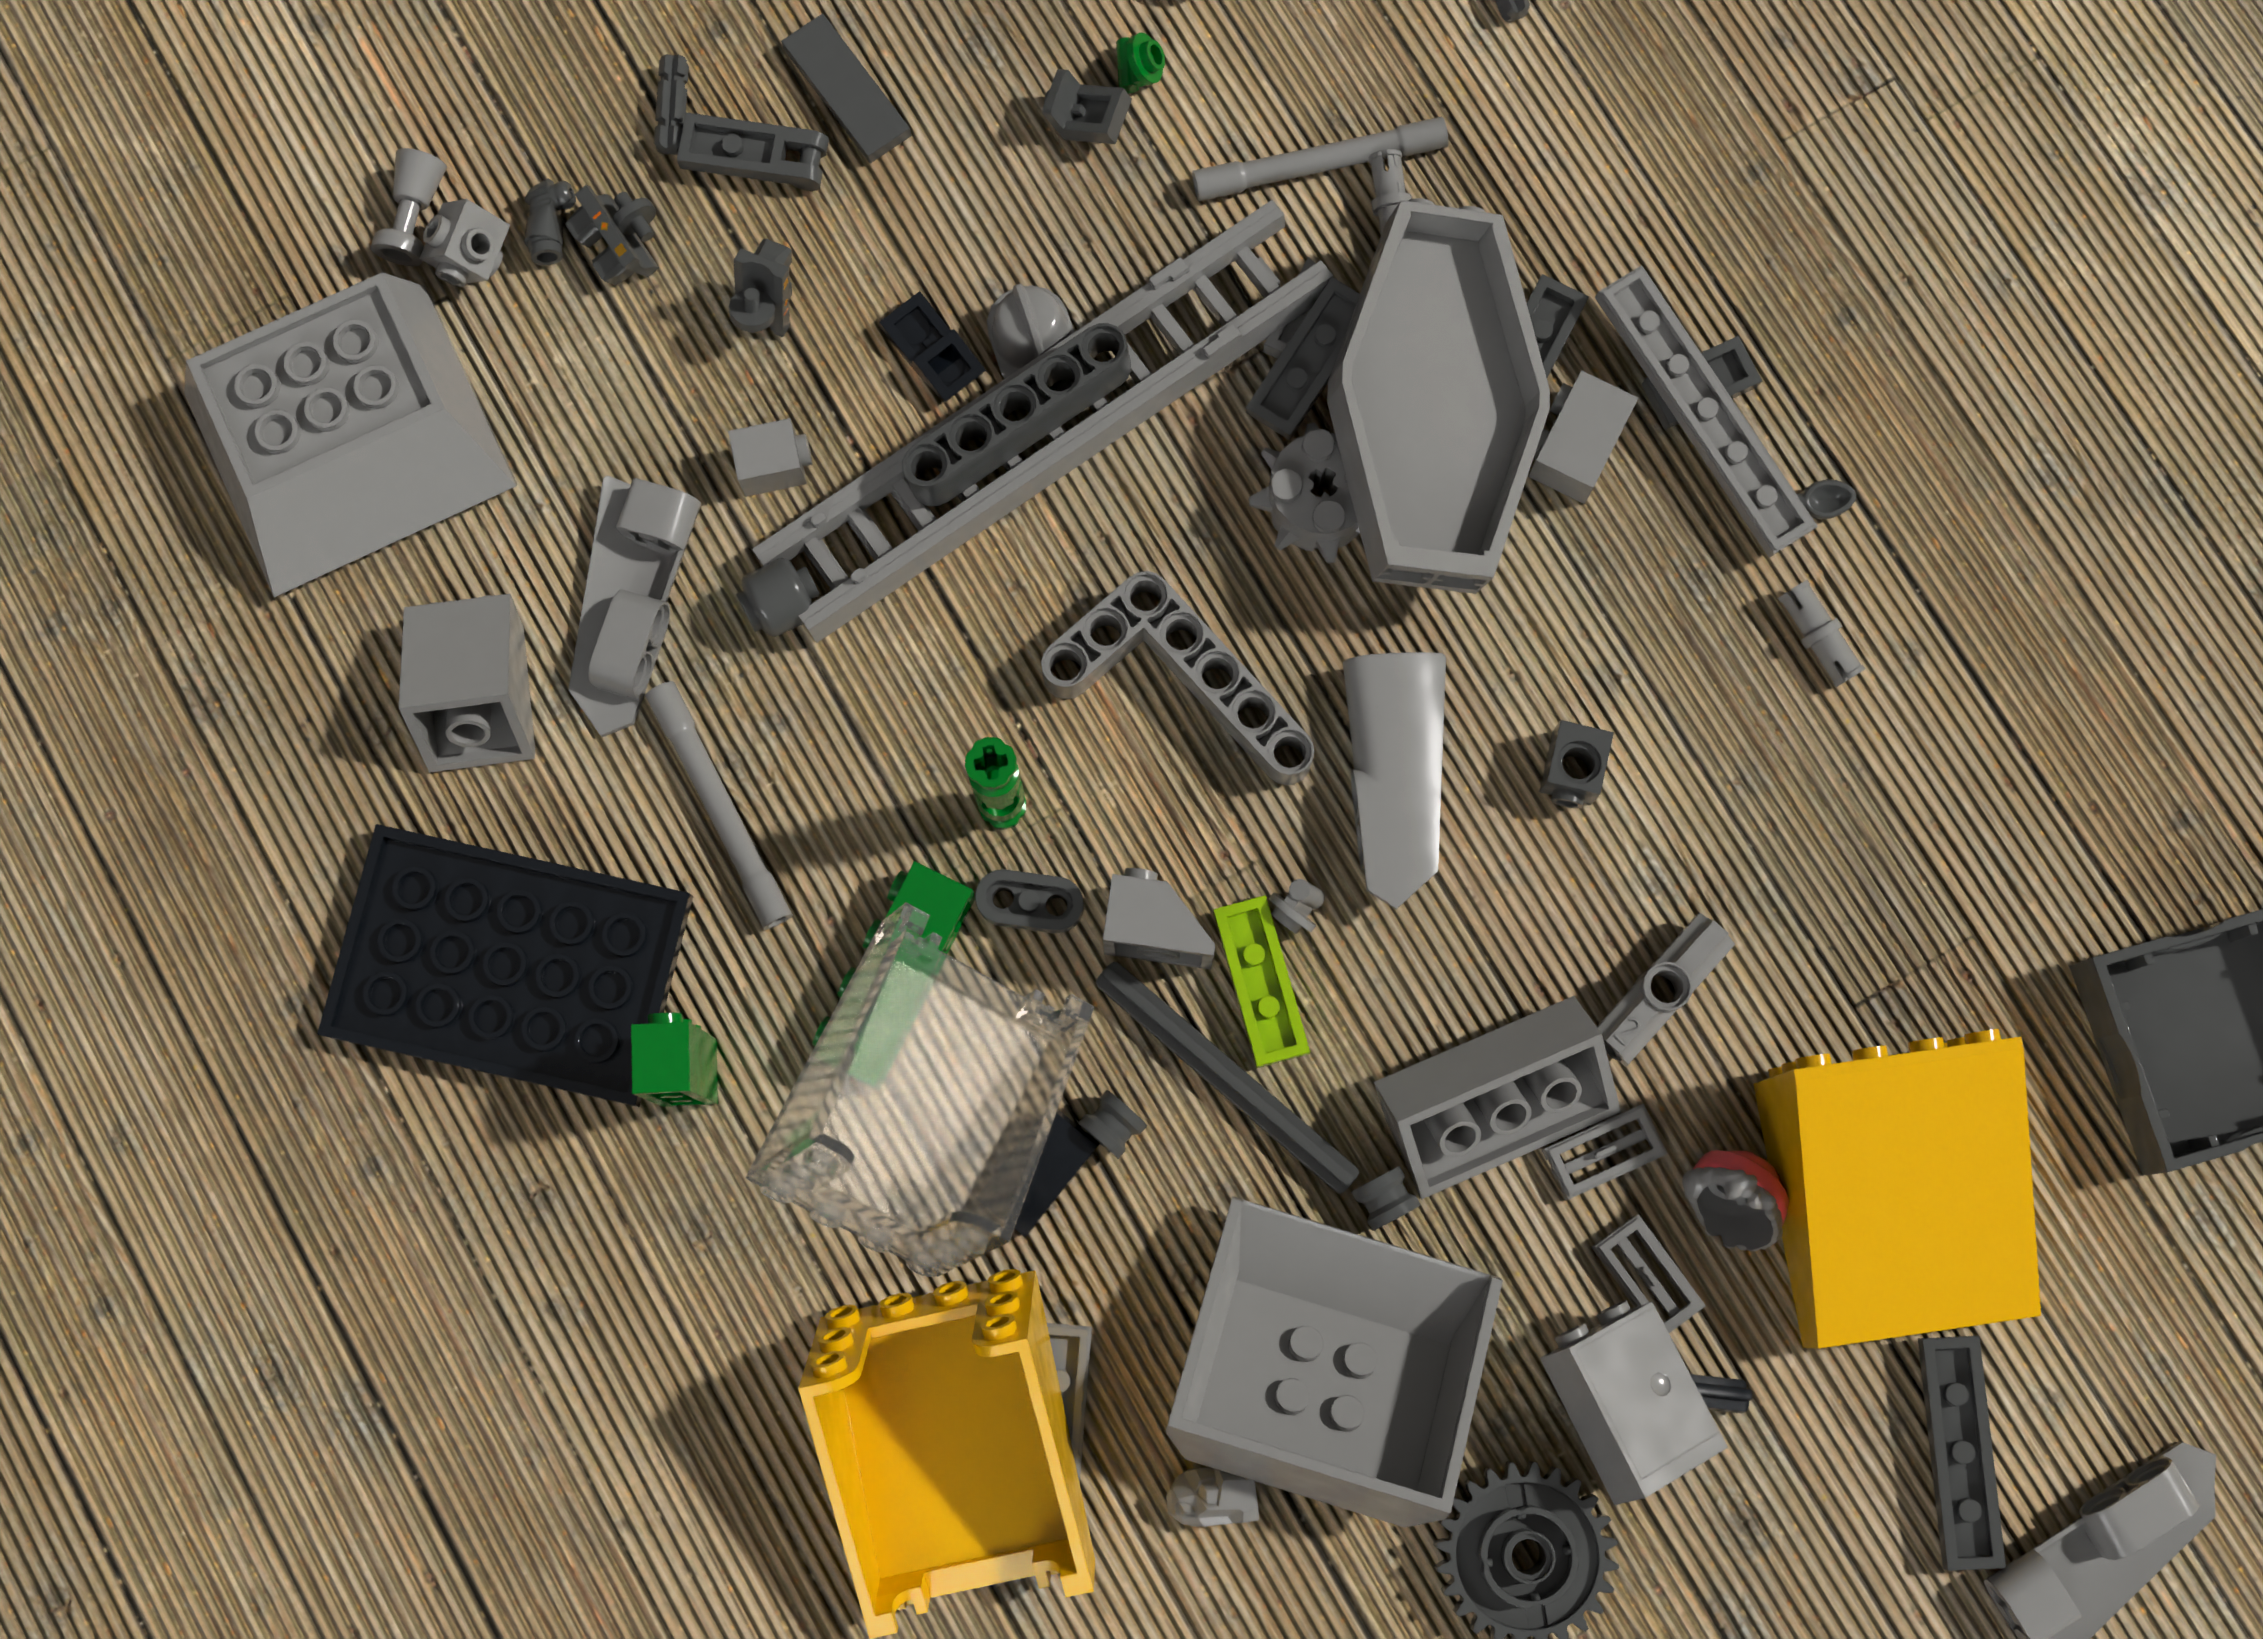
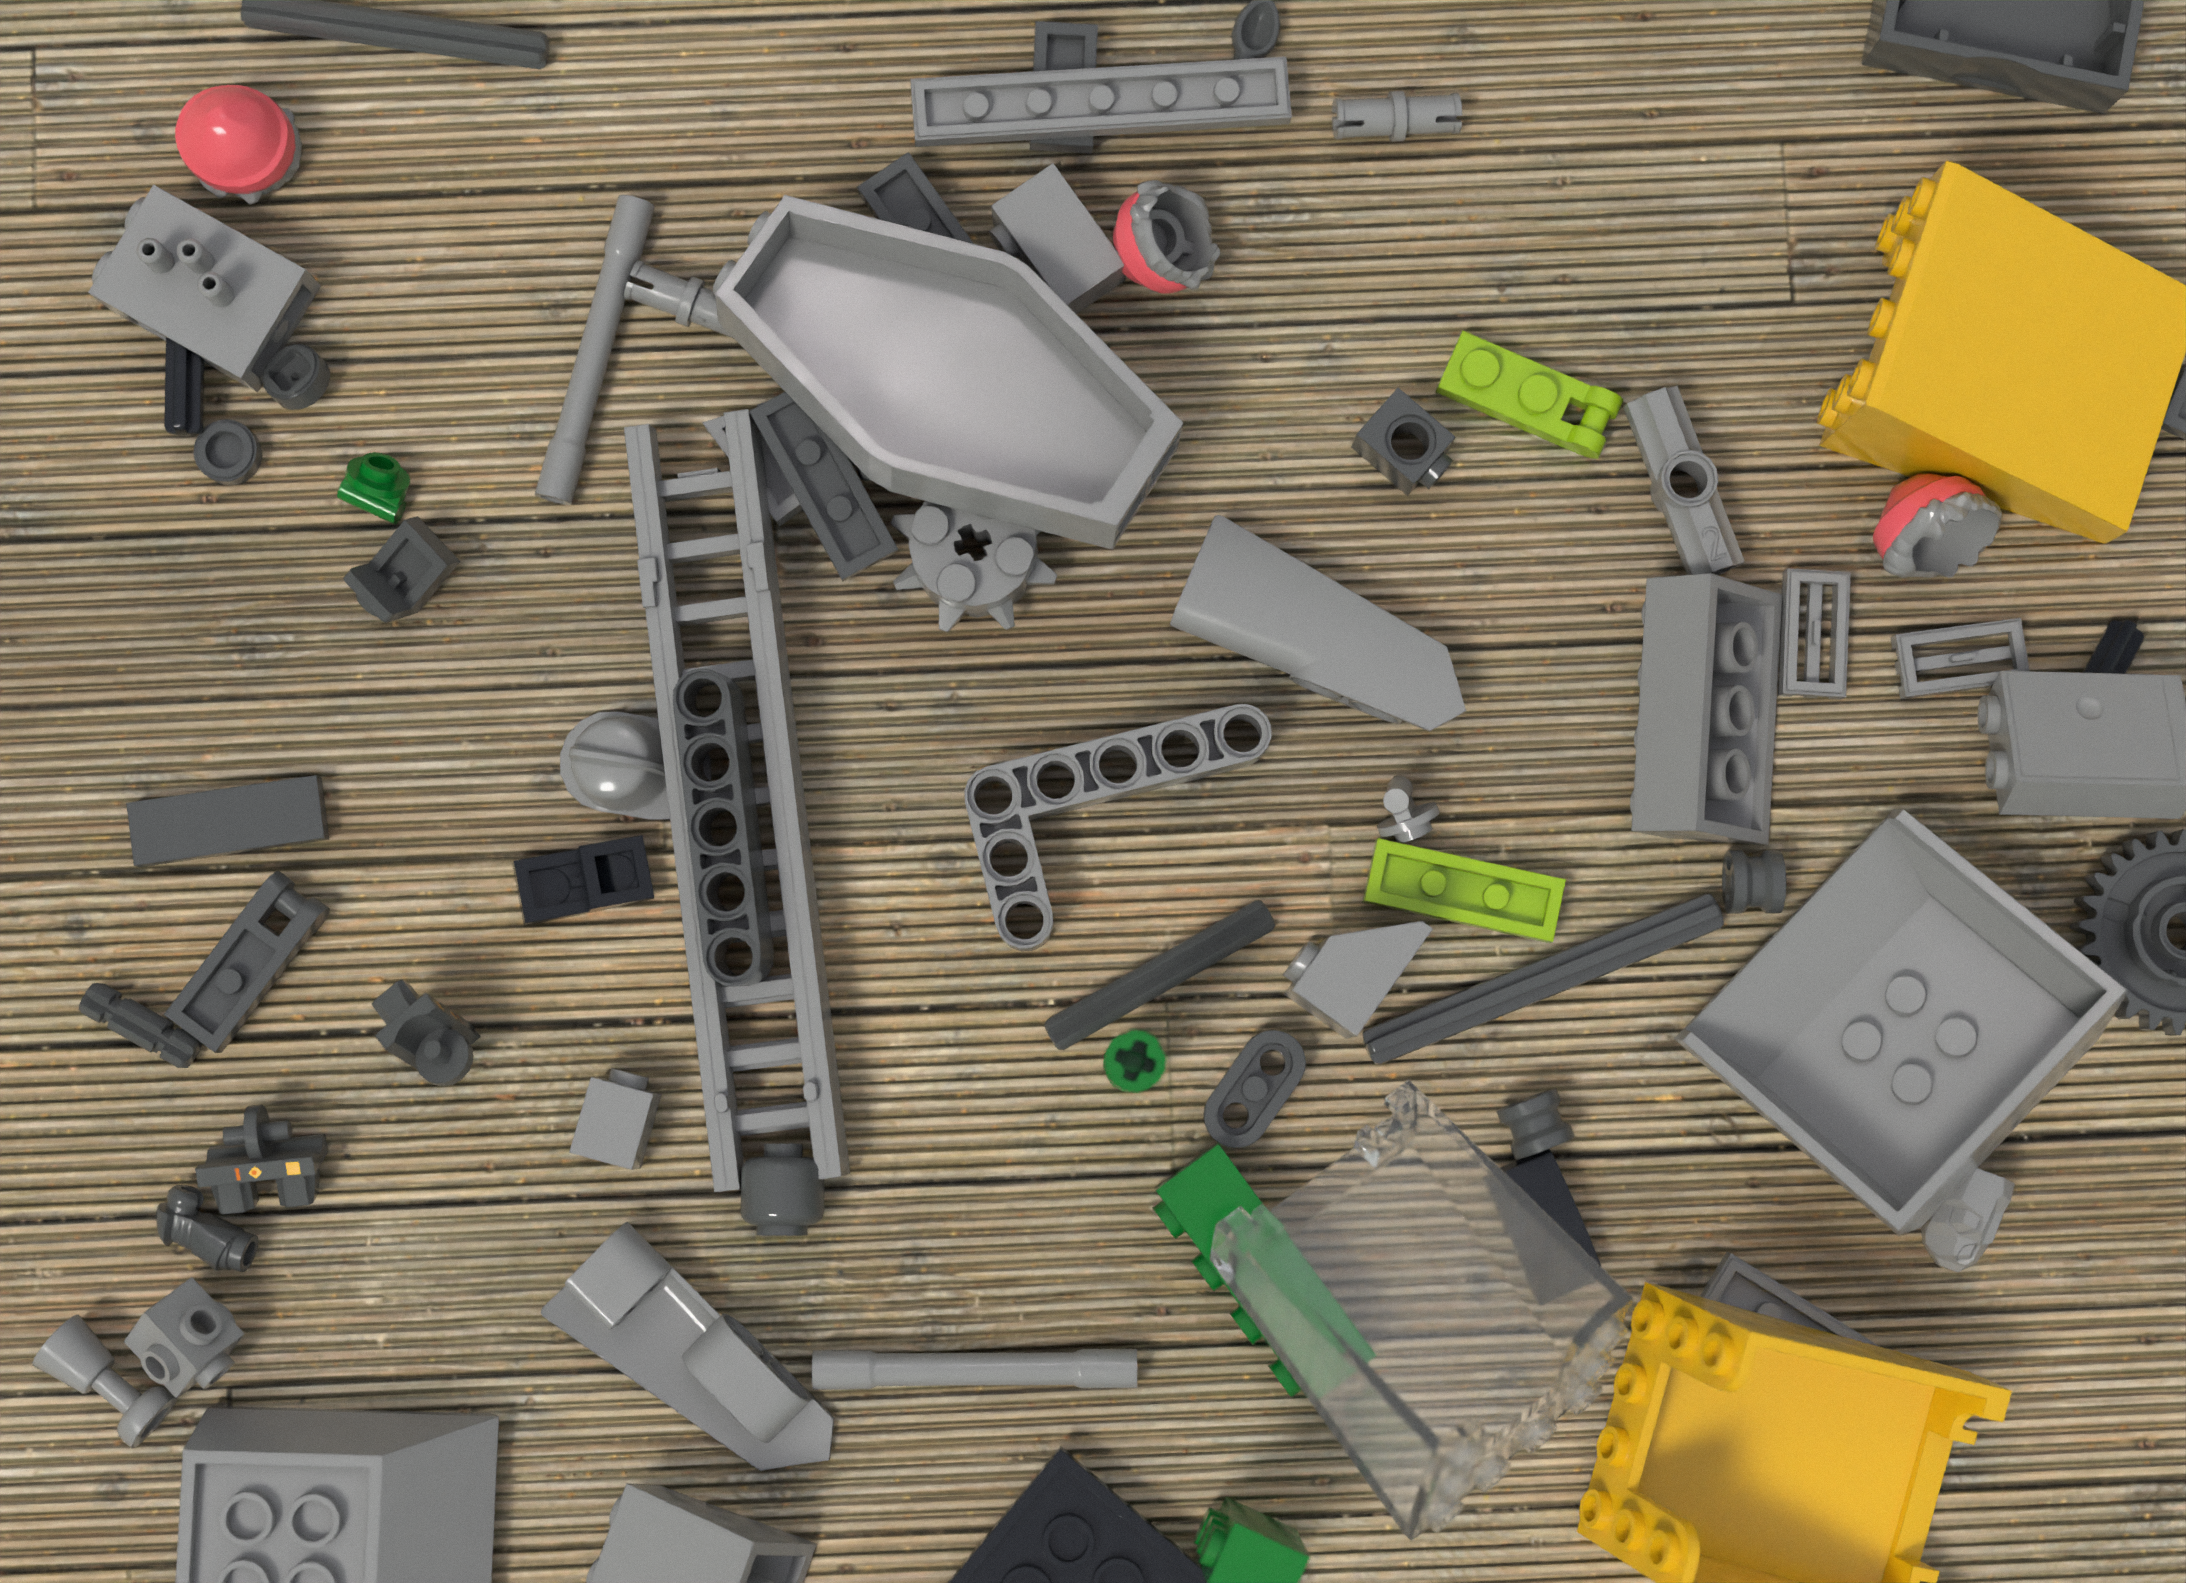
camera: 65 degrees left, 5 degrees up
(1086, 794) = (1159, 975): none -> dark grey axle
(1630, 508) = (1165, 238): none -> light grey hair
(1665, 839) = (1528, 395): none -> lime plate

